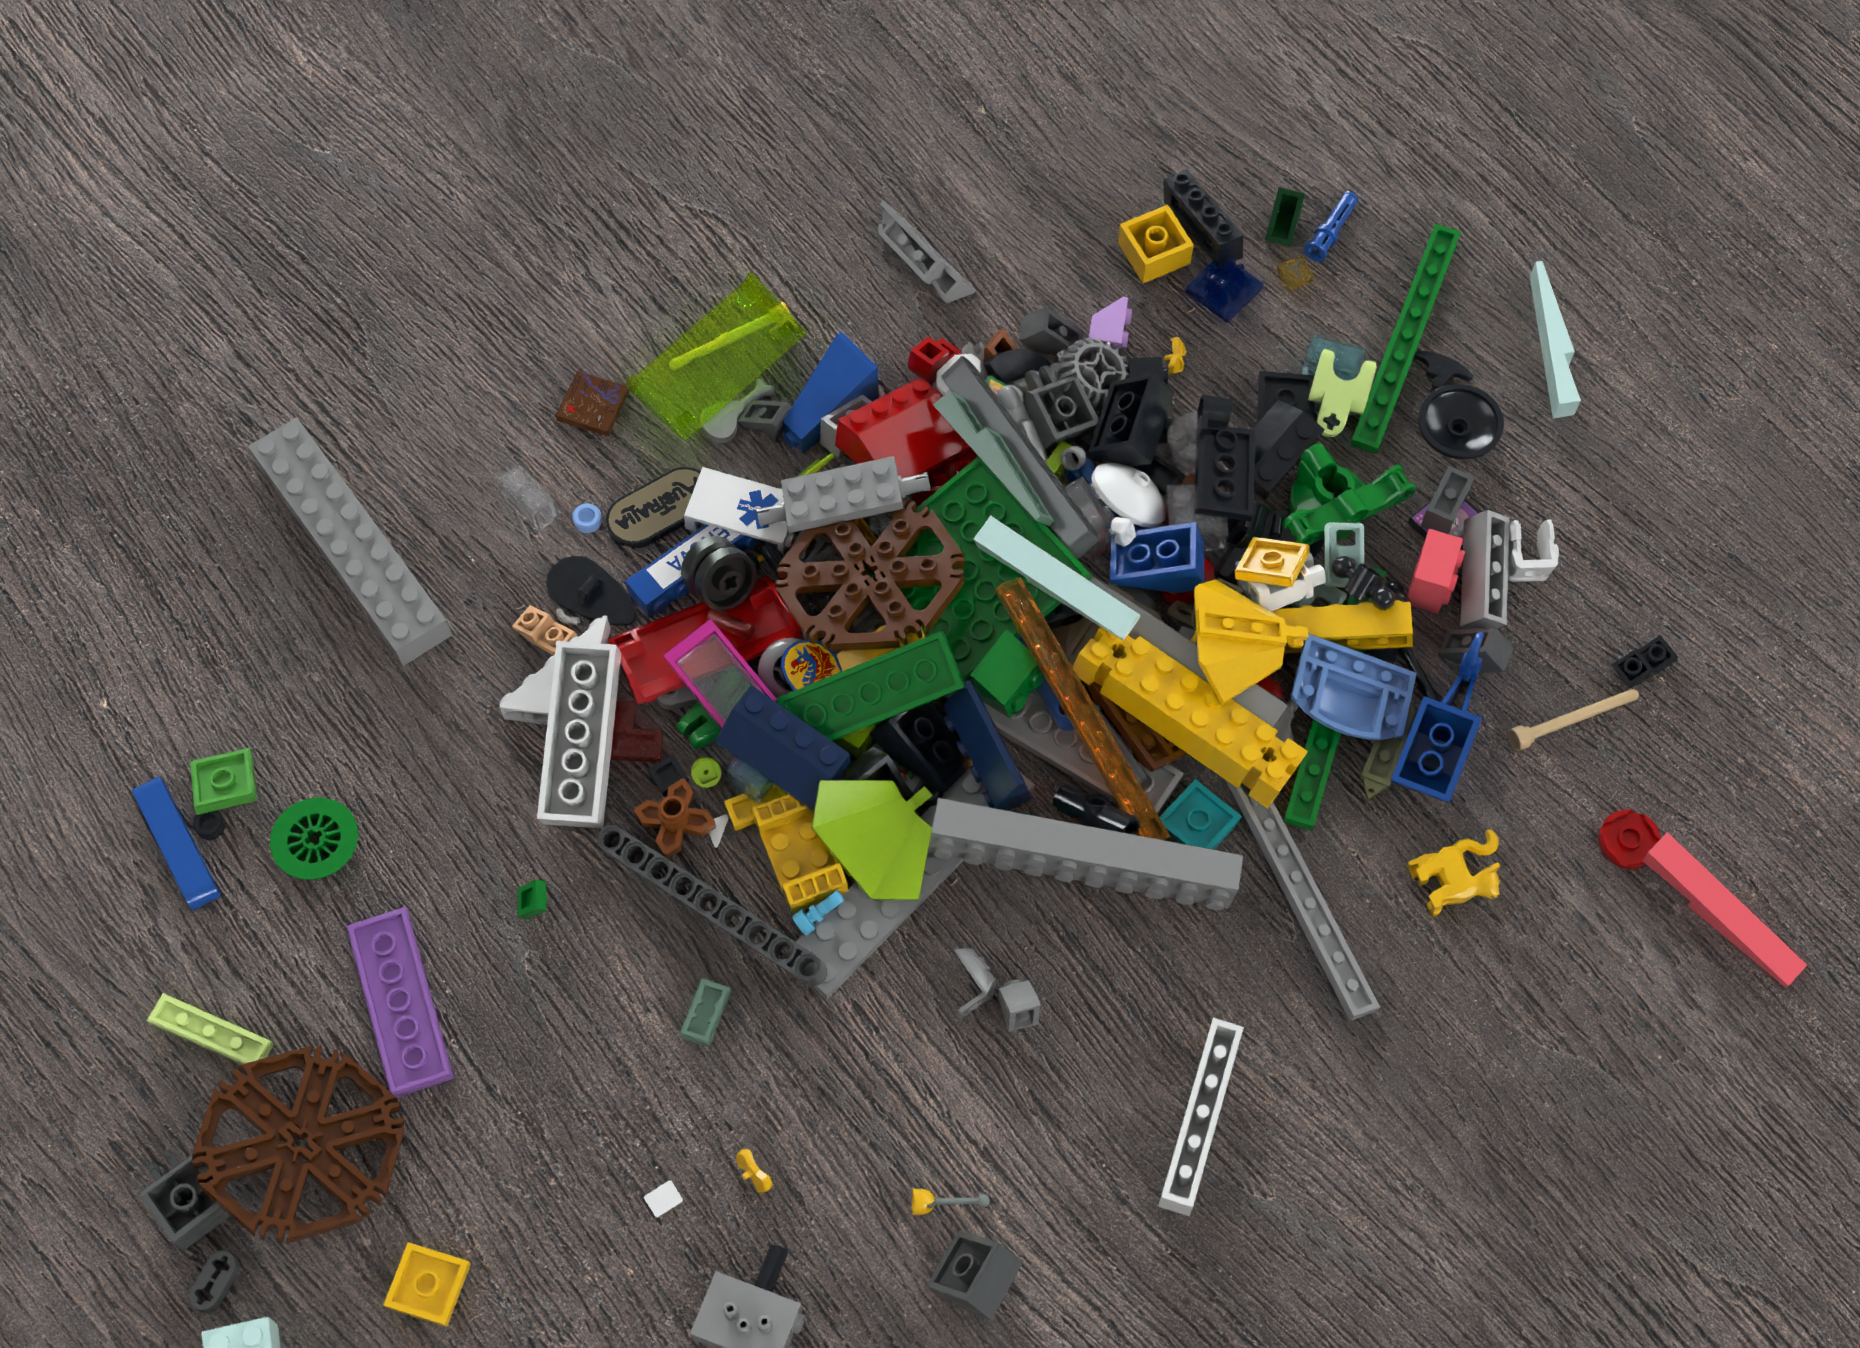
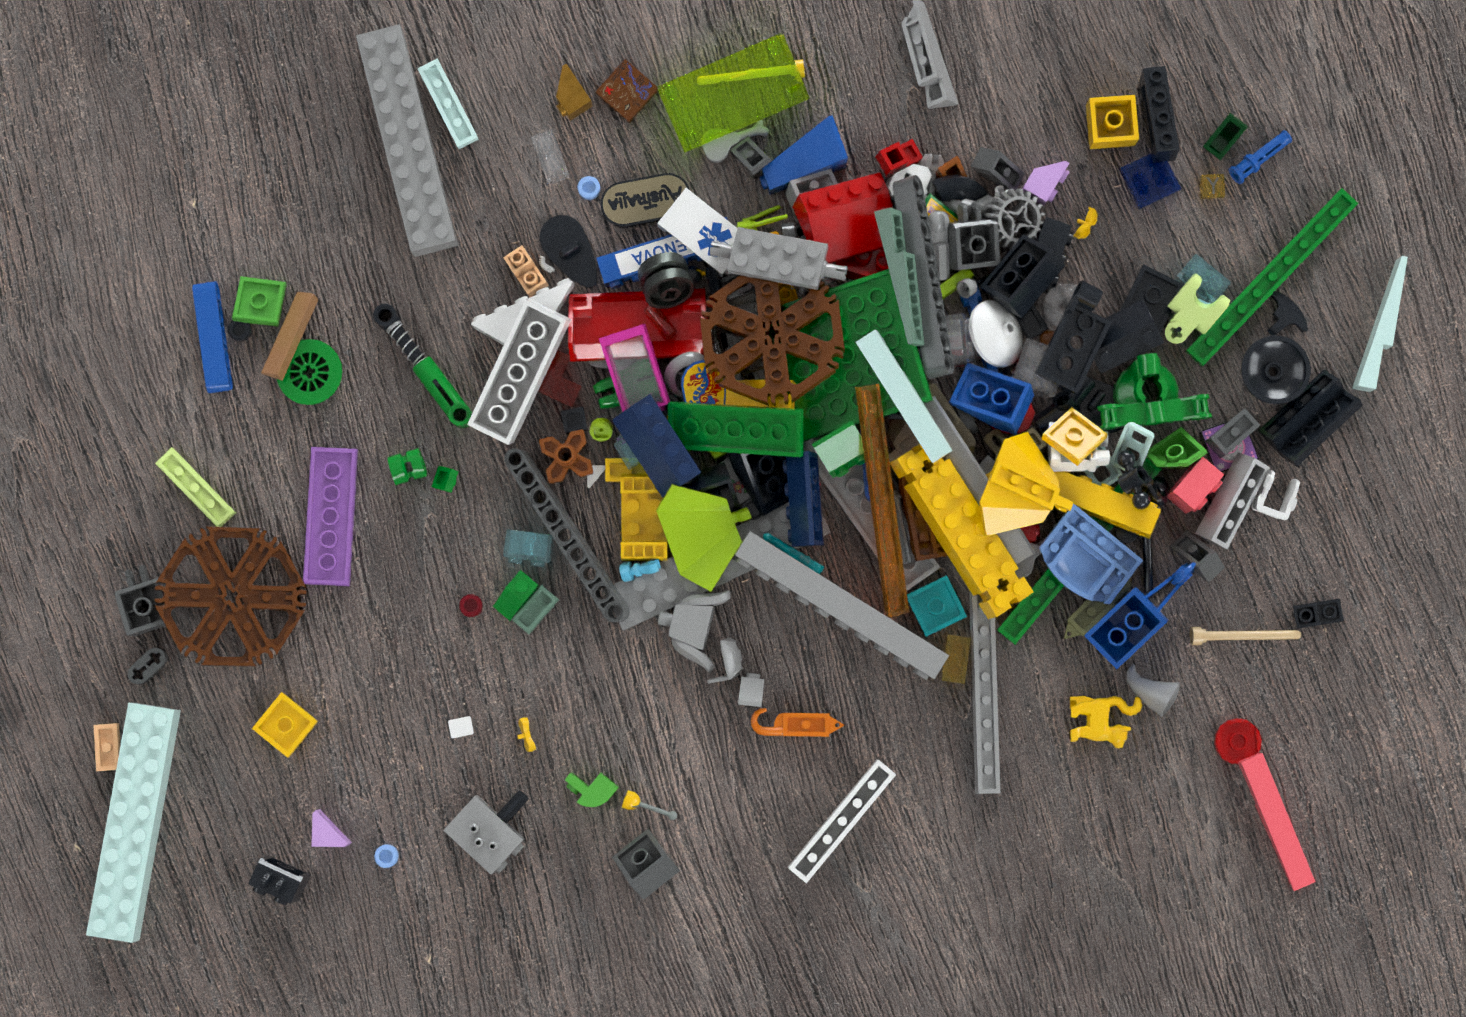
camera: 25 degrees right, 20 degrees up
(275, 803) = (290, 335): none -> medium nougat slope
(384, 486) = (448, 103): none -> light aqua plate
(460, 781) = (424, 367): none -> piece
(469, 907) = (399, 468): none -> green wheel
(530, 427) = (571, 95): none -> pearl gold slope
(621, 1040) = (471, 605): none -> dark red tile
(668, 940) = (528, 547): none -> clear light blue brick
(673, 1002) = (515, 595): none -> green slope
(871, 1212) = (594, 795): none -> bright green brick
(910, 953) = (692, 624): none -> light grey torso
(1093, 1024) = (797, 724): none -> orange plate
(1094, 810) = (863, 576): black piece -> none
(1124, 530) = (975, 367): white piece -> none
(1254, 879) = (956, 664): none -> clear yellow plate
(1397, 541) = (1176, 451): none -> bright green slope
(1507, 819) = (1155, 694): none -> light grey hat
(1524, 461) = (1310, 418): none -> black slope

